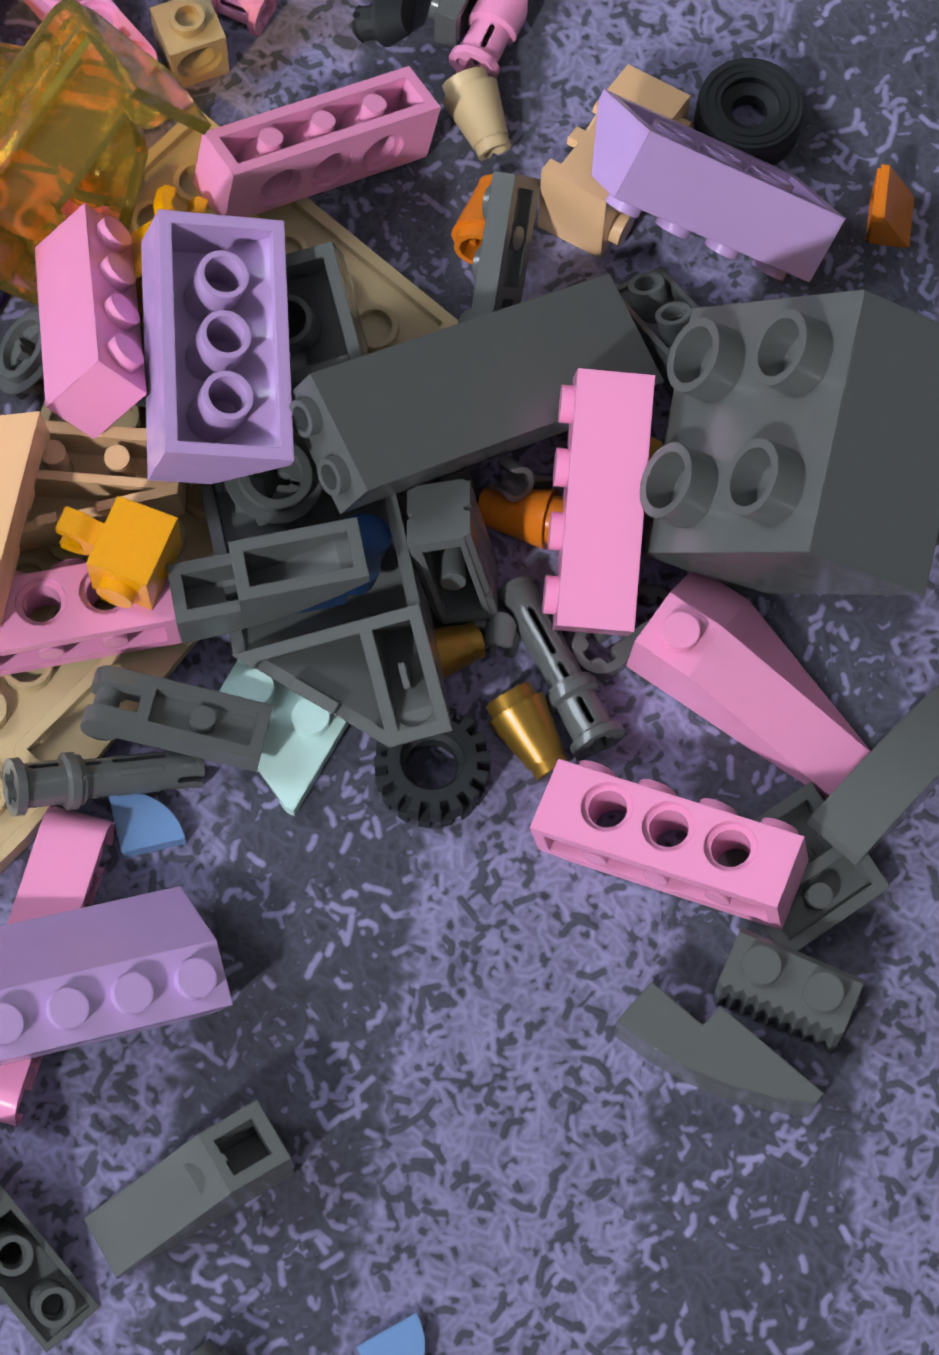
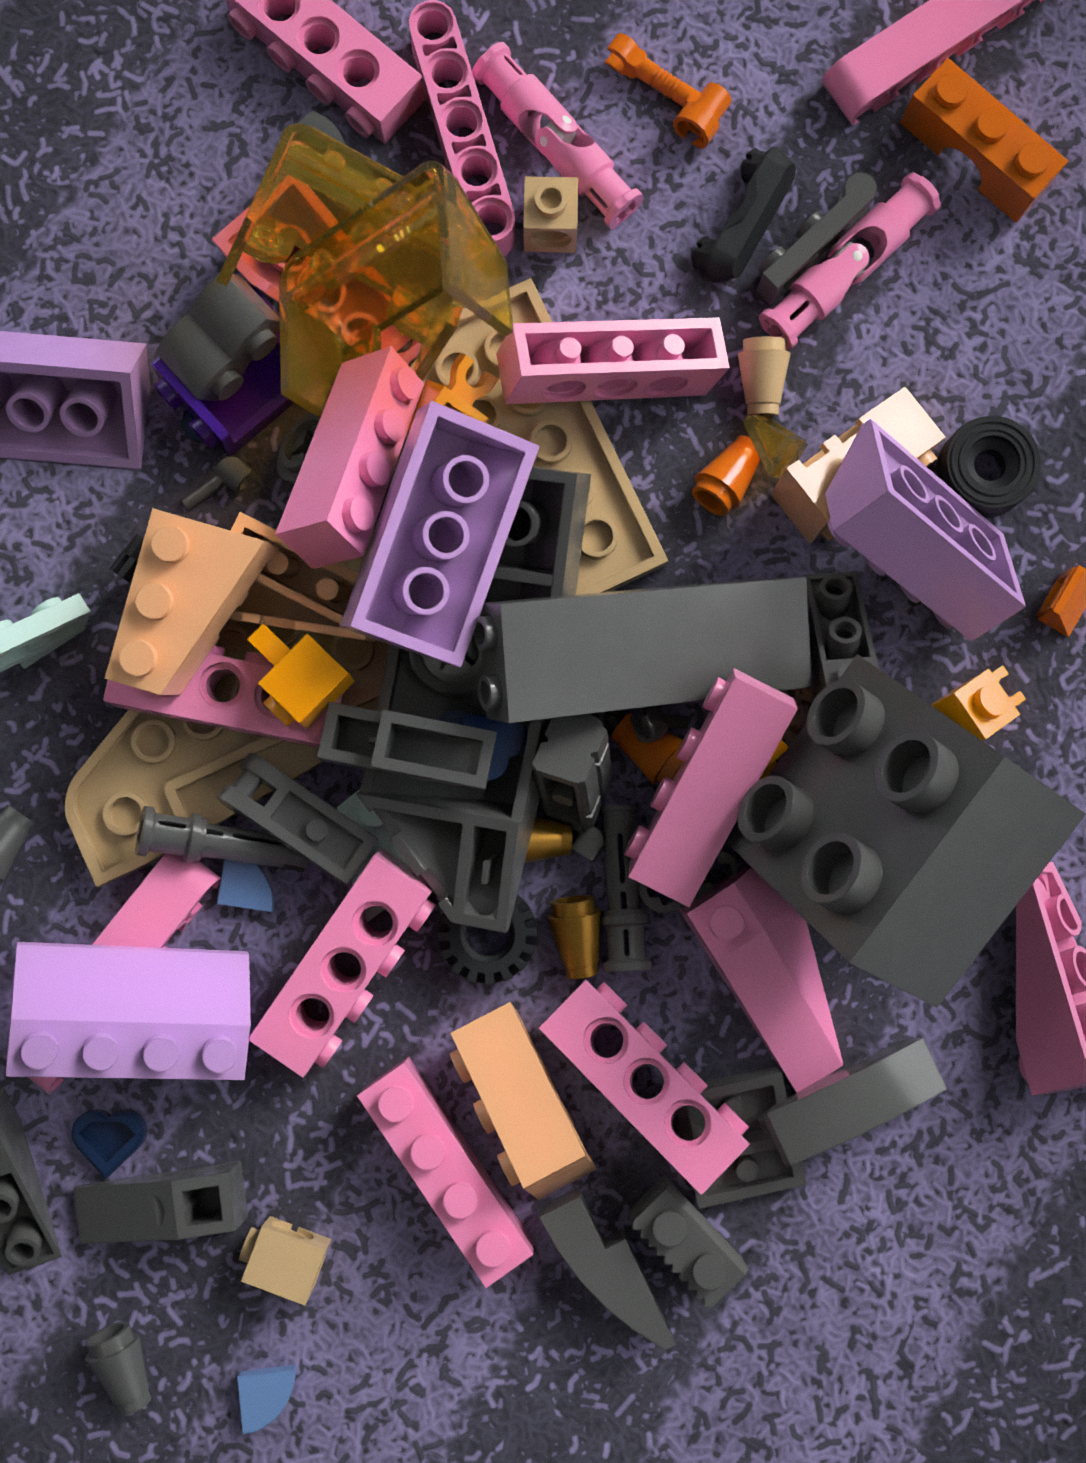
camera: 20 degrees right, 15 degrees up
(101, 1154) = (108, 1138): none -> dark blue tile
(296, 745) = (286, 1028): none -> bright pink brick
(355, 1191) = (283, 1259): none -> tan brick
(494, 1021) = (447, 1172): none -> bright pink brick
(506, 241) = (724, 523): dark grey plate -> none
(514, 162) = (774, 444): none -> clear yellow slope
(550, 918) = (519, 1103): none -> light nougat wedge

